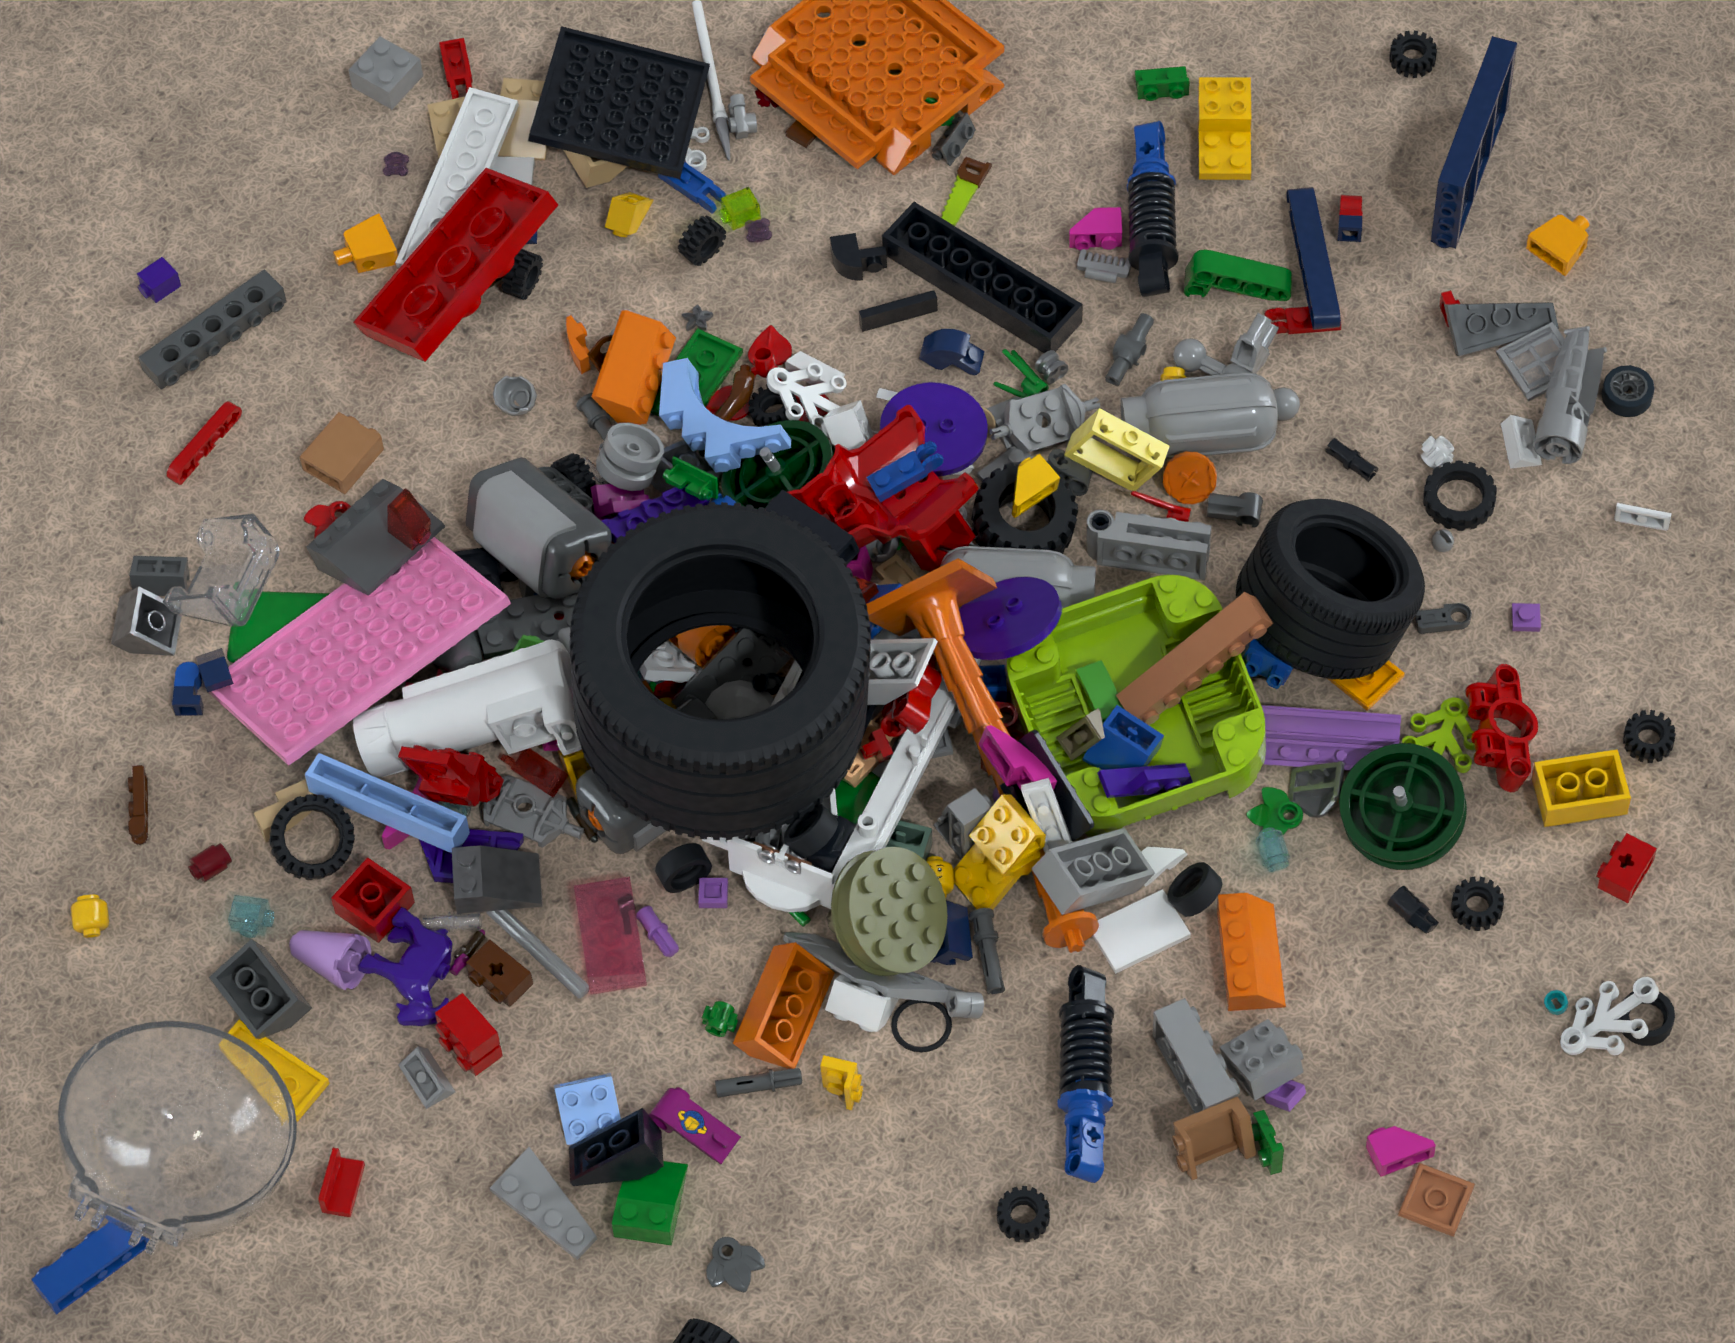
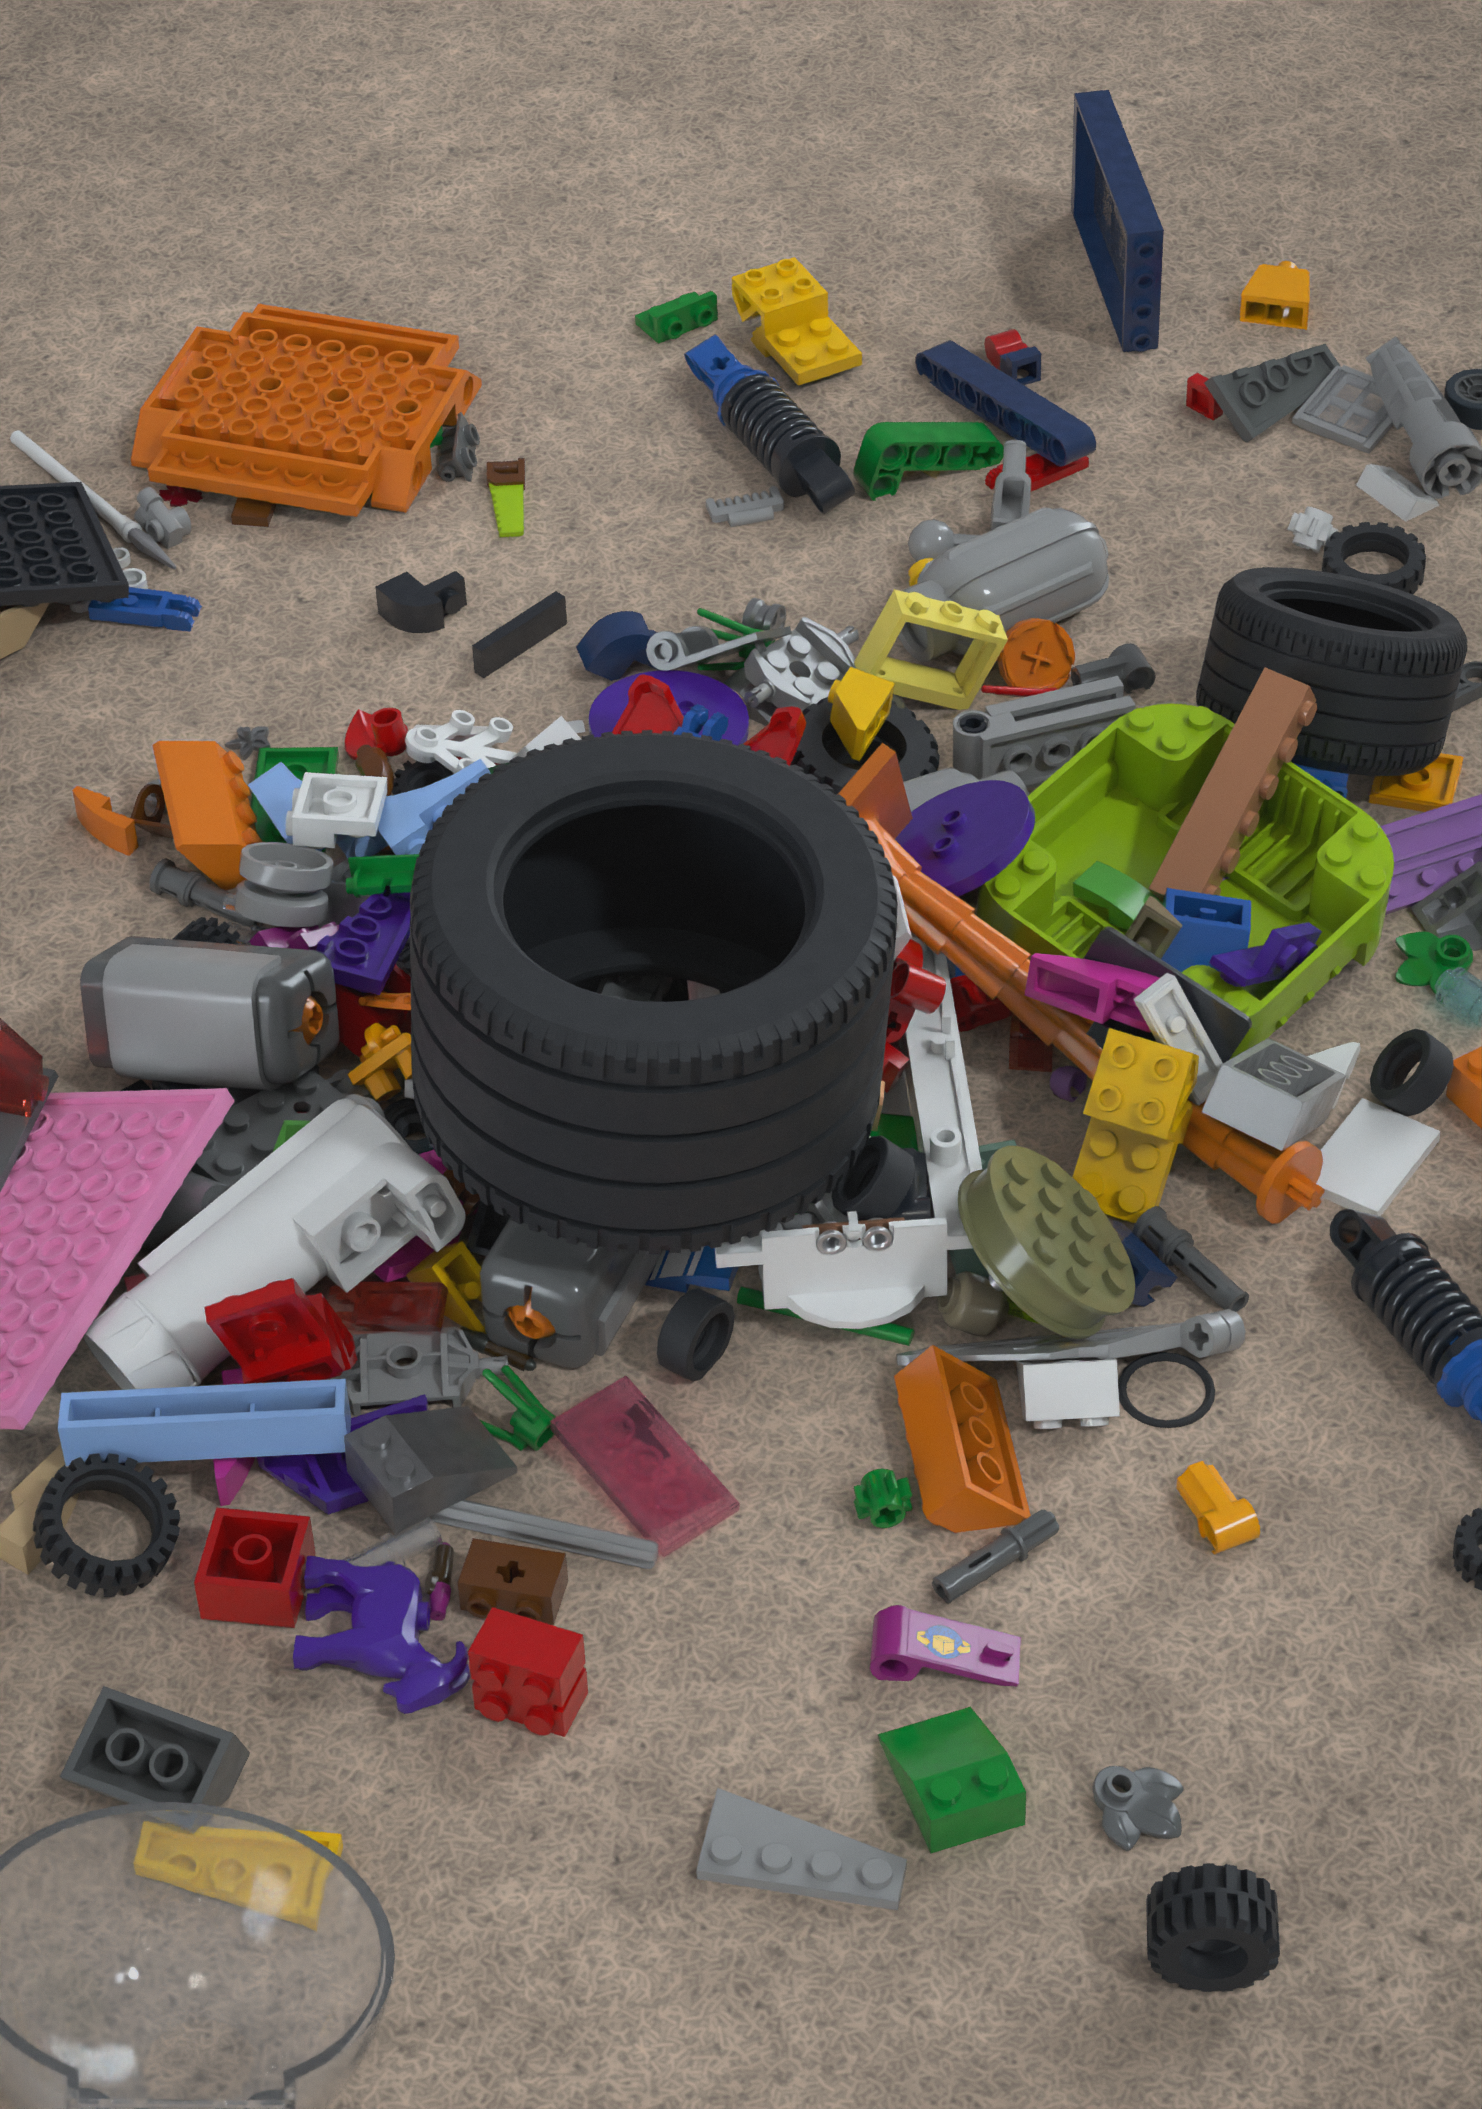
camera: 30 degrees left, 15 degrees down
(250, 916) = (71, 1672): clear light blue brick -> none
(332, 955) = (236, 1665): lavender cone -> none
(340, 1184) = (460, 1974): red panel -> none
(426, 1077) = (489, 1771): light grey slope -> none
(515, 389) = (57, 898): light grey hair -> none
(567, 876) = (530, 1420): none -> green plant
(586, 1106) = (774, 1696): light blue bracket -> none
(618, 1152) = (864, 1726): black slope -> none
(627, 213) = (76, 664): yellow slope -> none
(657, 931) = (709, 1434): medium lavender axle -> none
(685, 417) = (335, 806): none -> white plate
(702, 240) = (203, 650): black tyre -> none
(713, 893) = (754, 1354): medium lavender plate -> none
(739, 208) = (229, 606): clear neon green brick -> none
(761, 235) = (267, 623): clear purple plate -> none
(842, 1077) = (1122, 1486): yellow bracket -> none
(892, 1117) = (1218, 1512): none -> light orange piece
(961, 818) = (1053, 1111): light grey wedge -> none
(982, 278) = (607, 561): black brick -> none
(992, 379) = (700, 646): none -> dark grey door
(1098, 229) = (716, 469): dark pink slope -> none
(1129, 349) = (848, 569): dark grey pin -> none
(1351, 459) = (1201, 576): black pin -> none
(1413, 42) = (957, 193): black tyre -> none

